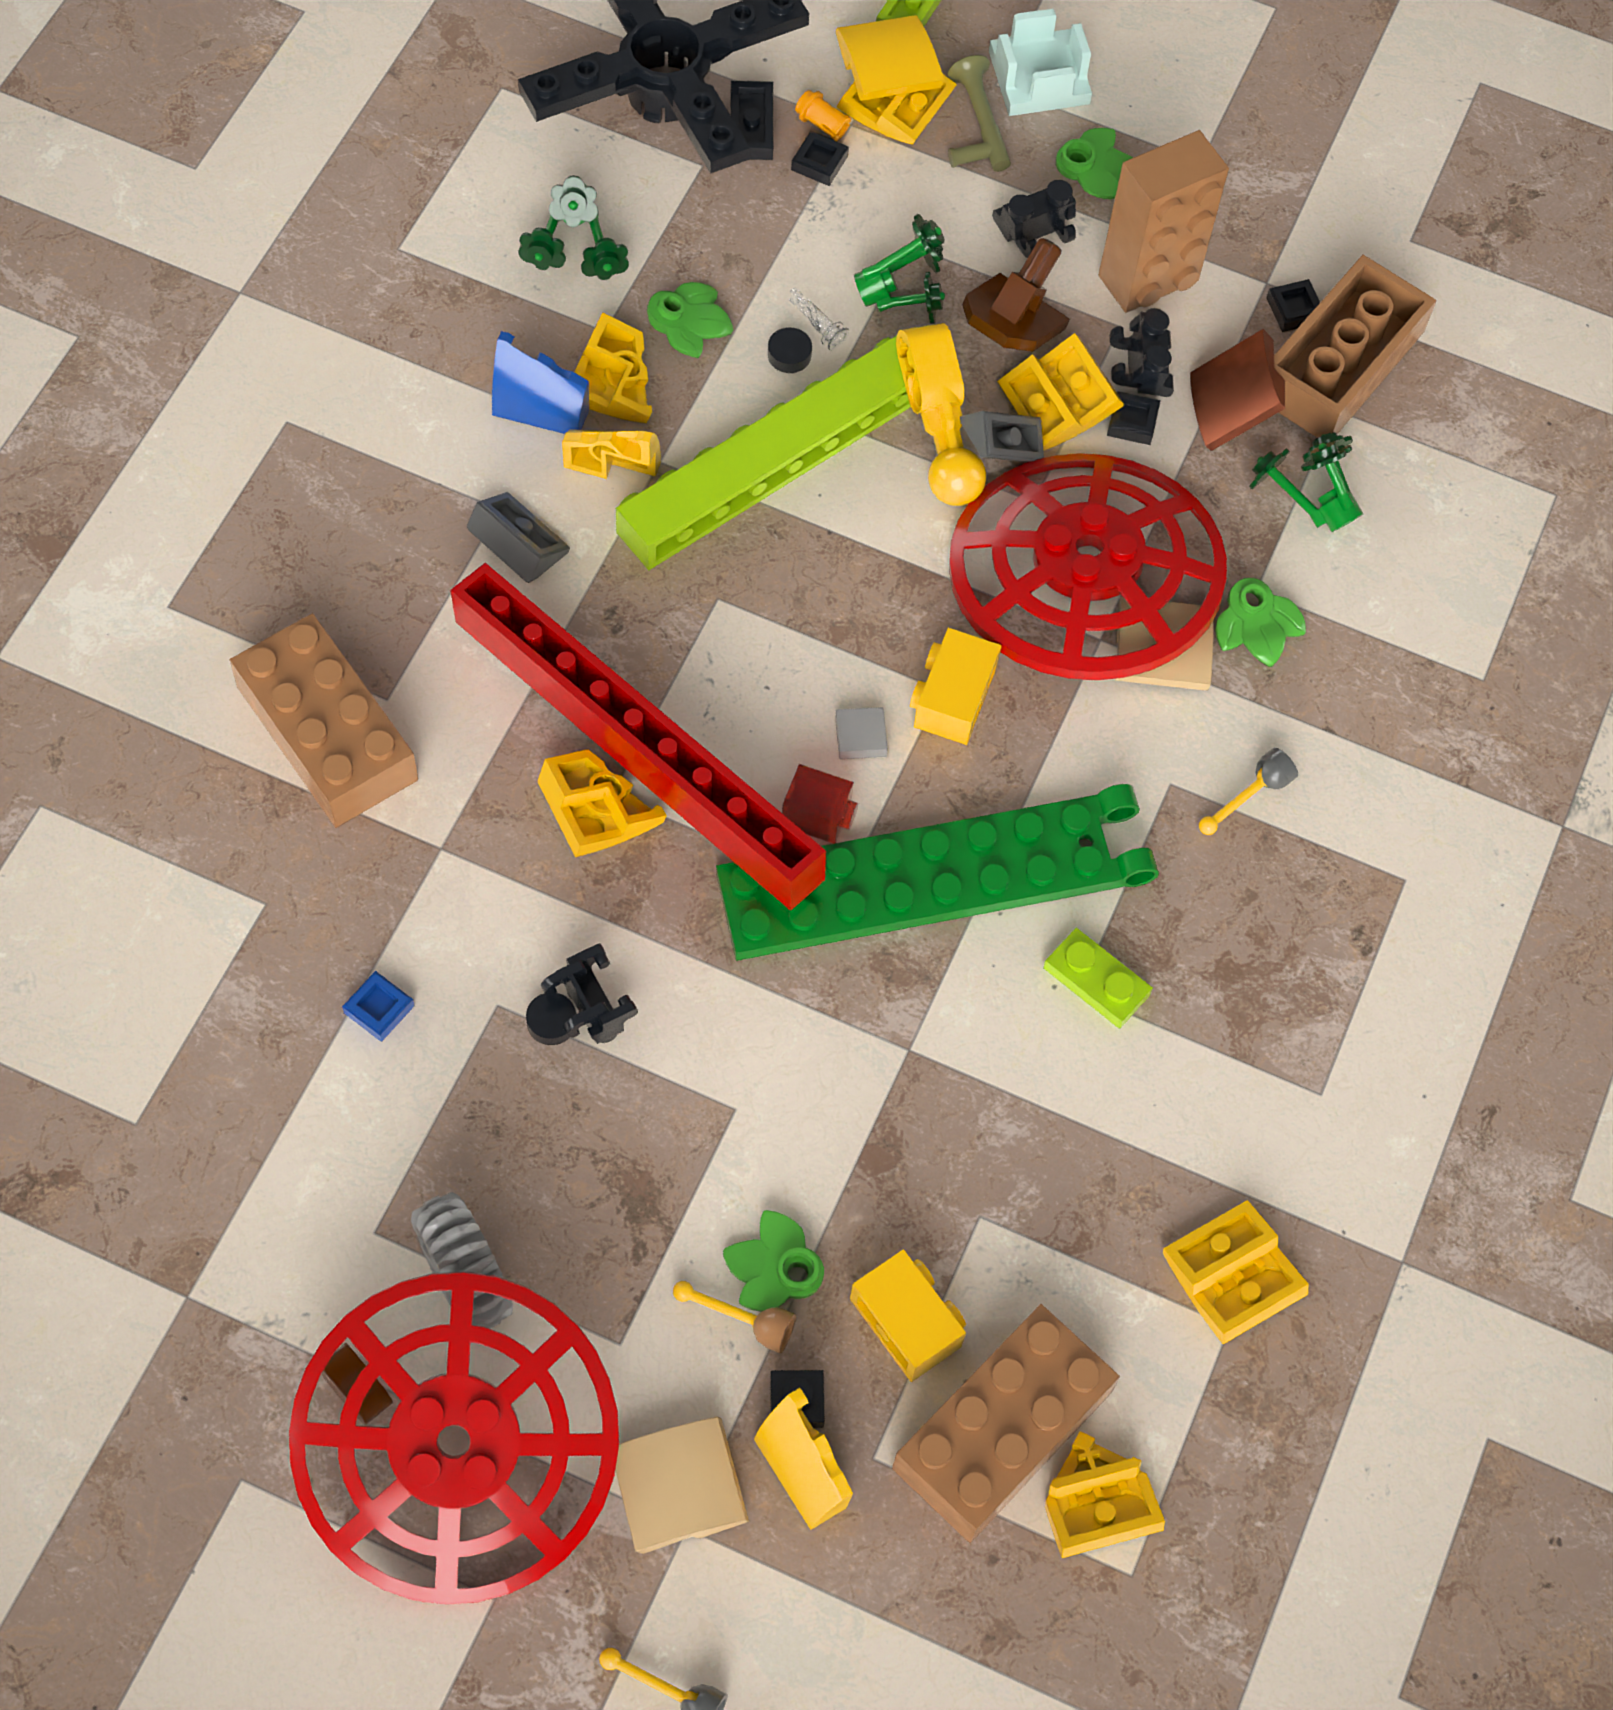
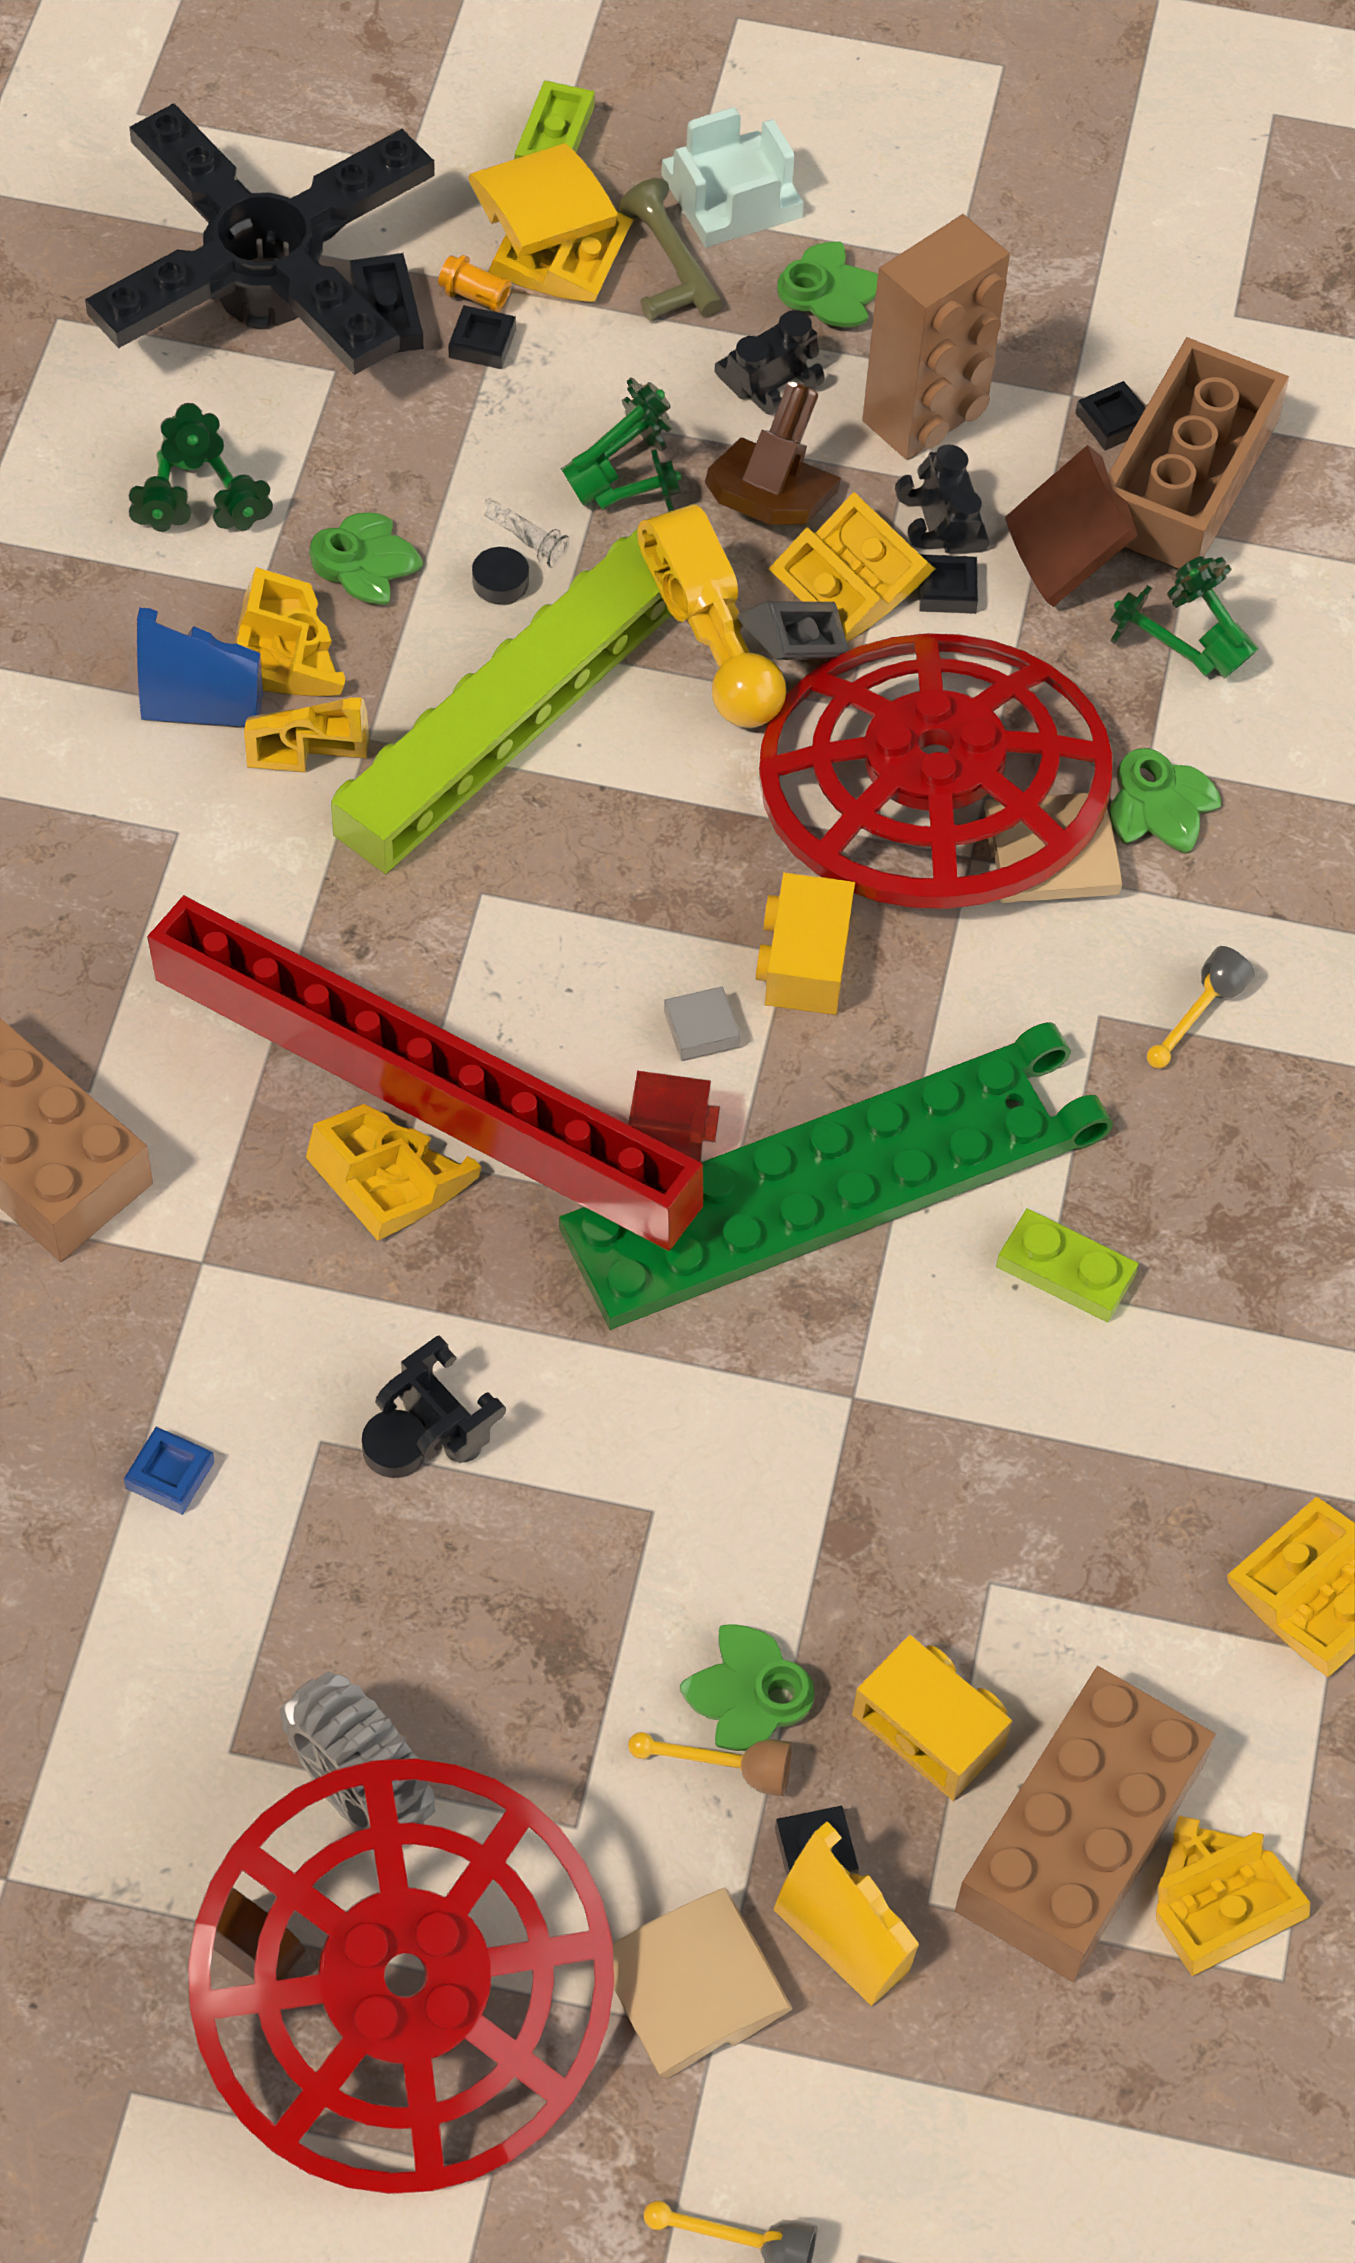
camera: 10 degrees left, 5 degrees down
(516, 536) = (207, 861): dark grey slope -> none

